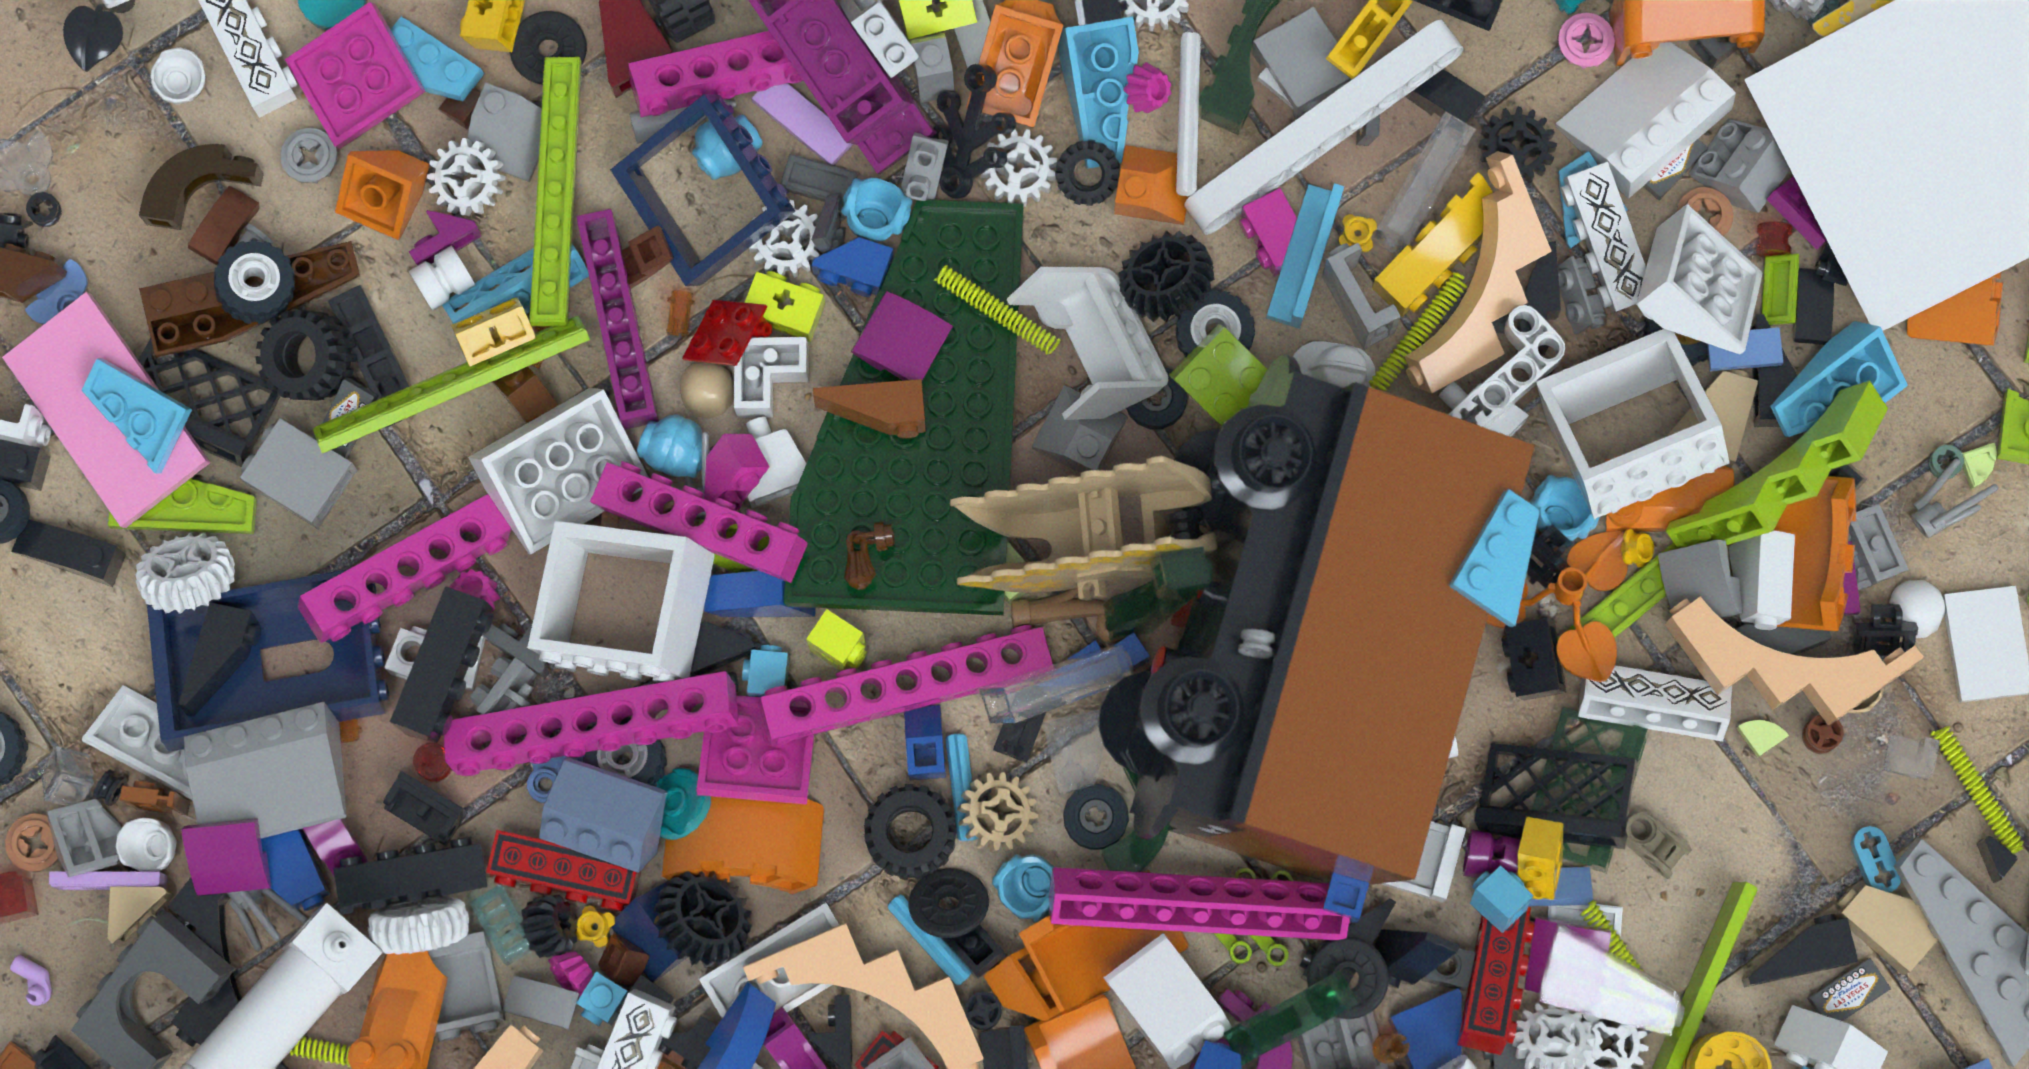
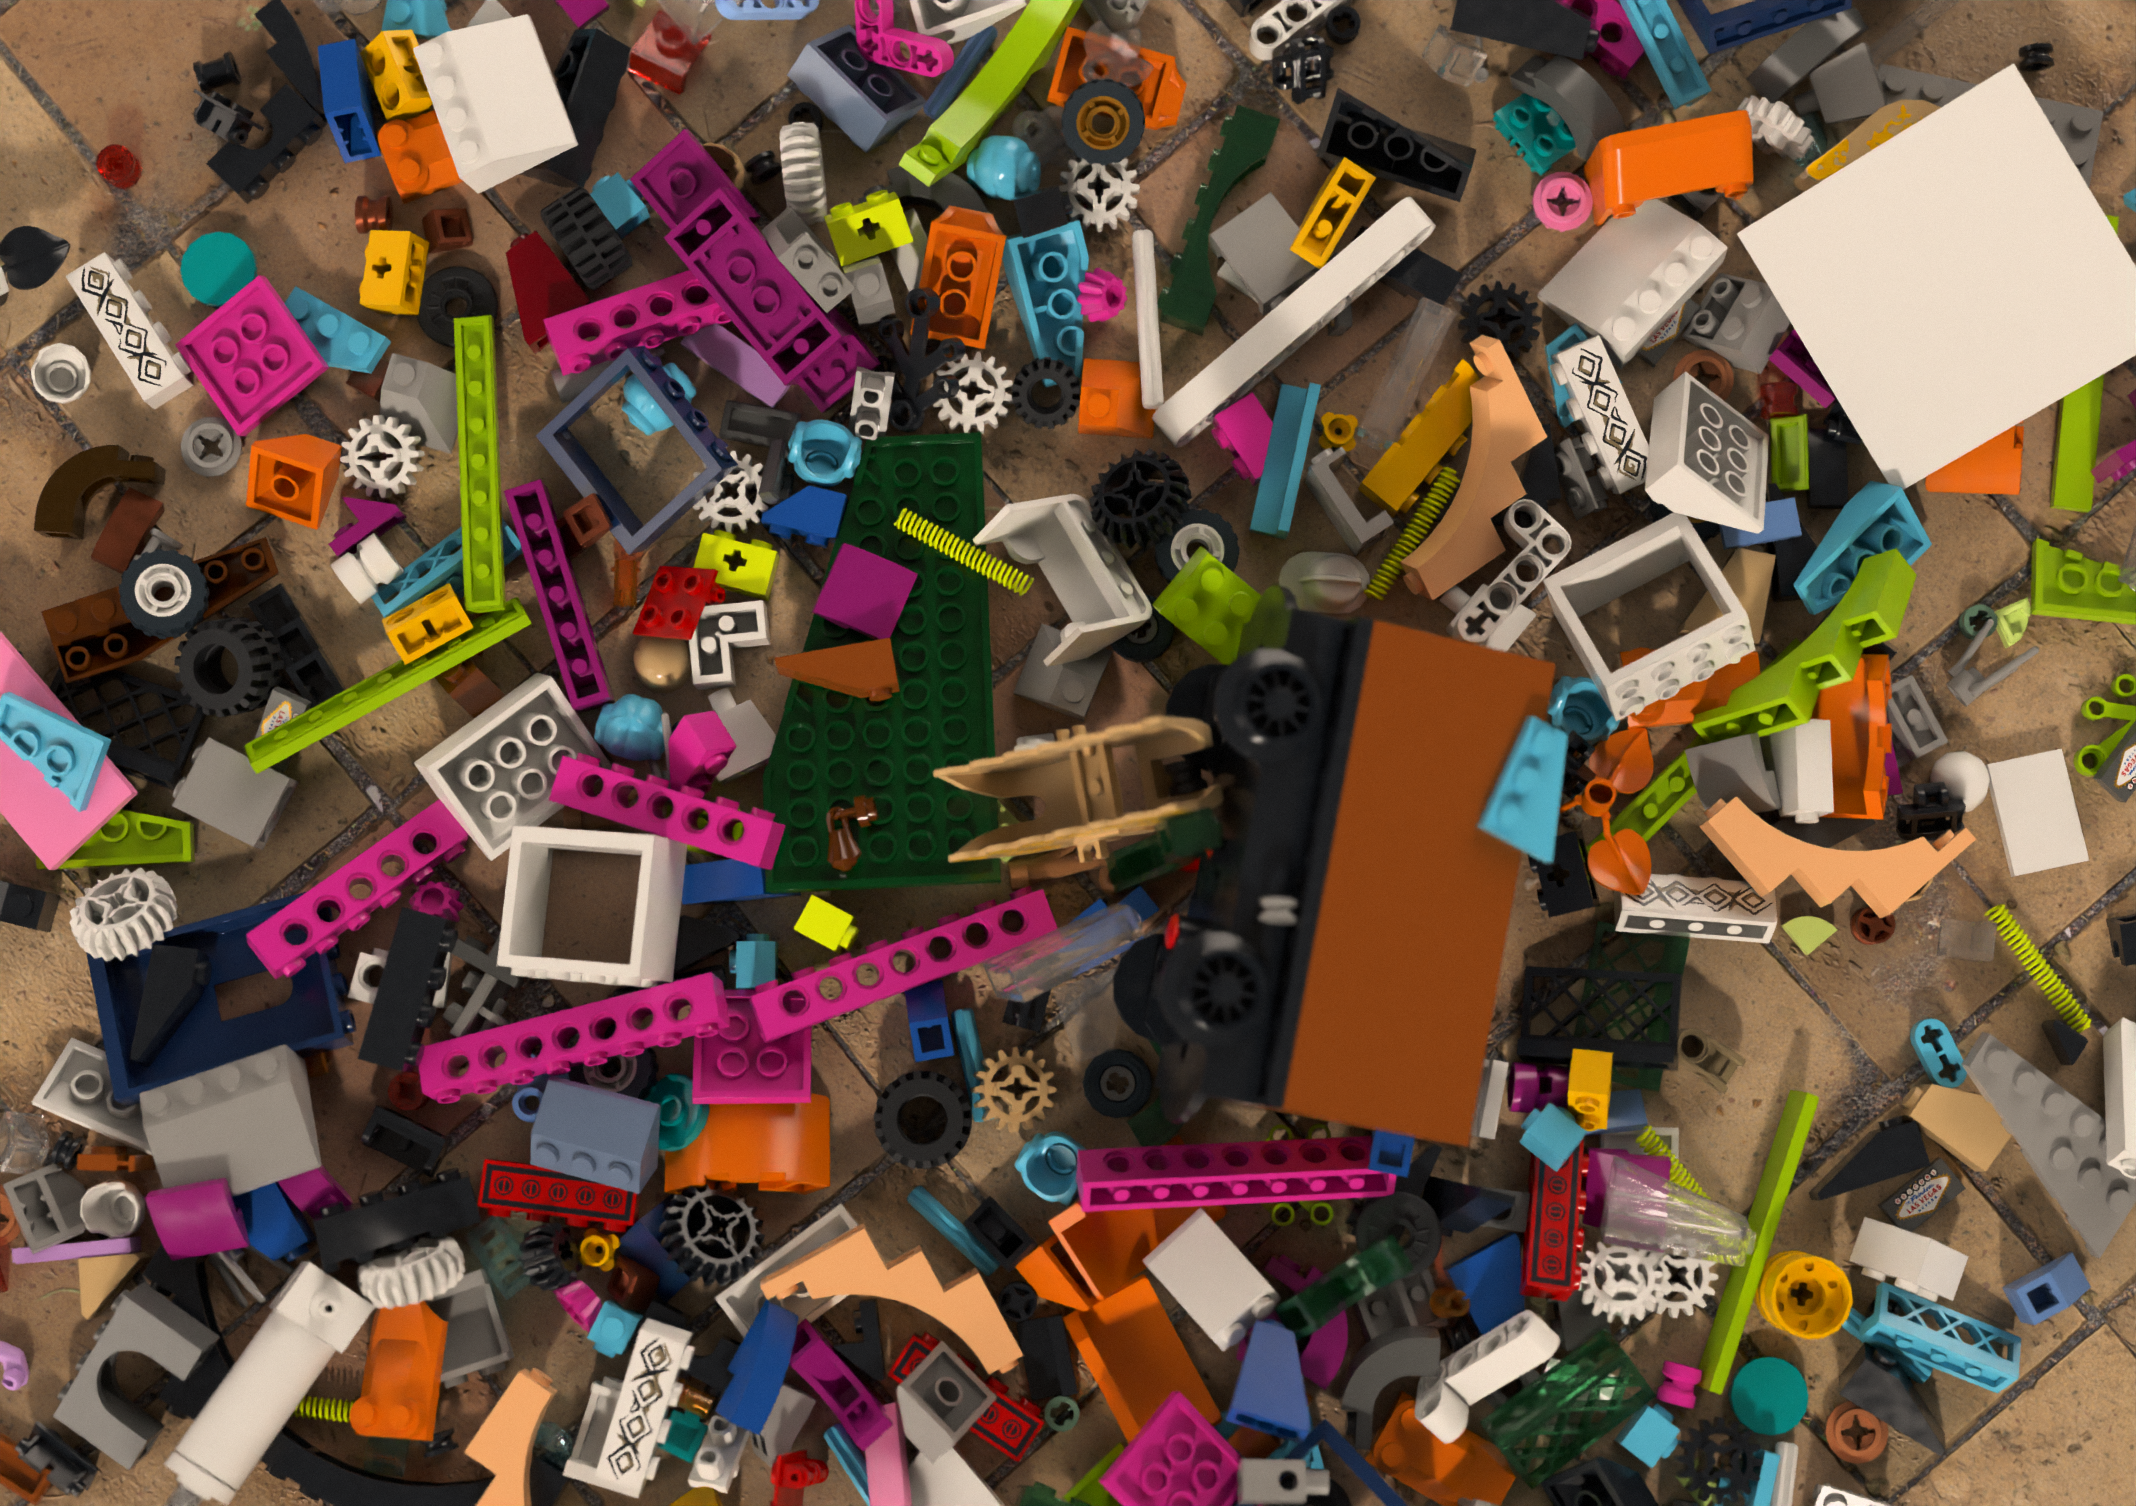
camera: 10 degrees left, 5 degrees up
(540, 1002) = (549, 1337): light grey slope -> none
(952, 922) = (976, 1212): black wheel -> none
(1637, 548) = (1662, 744): yellow plate -> none

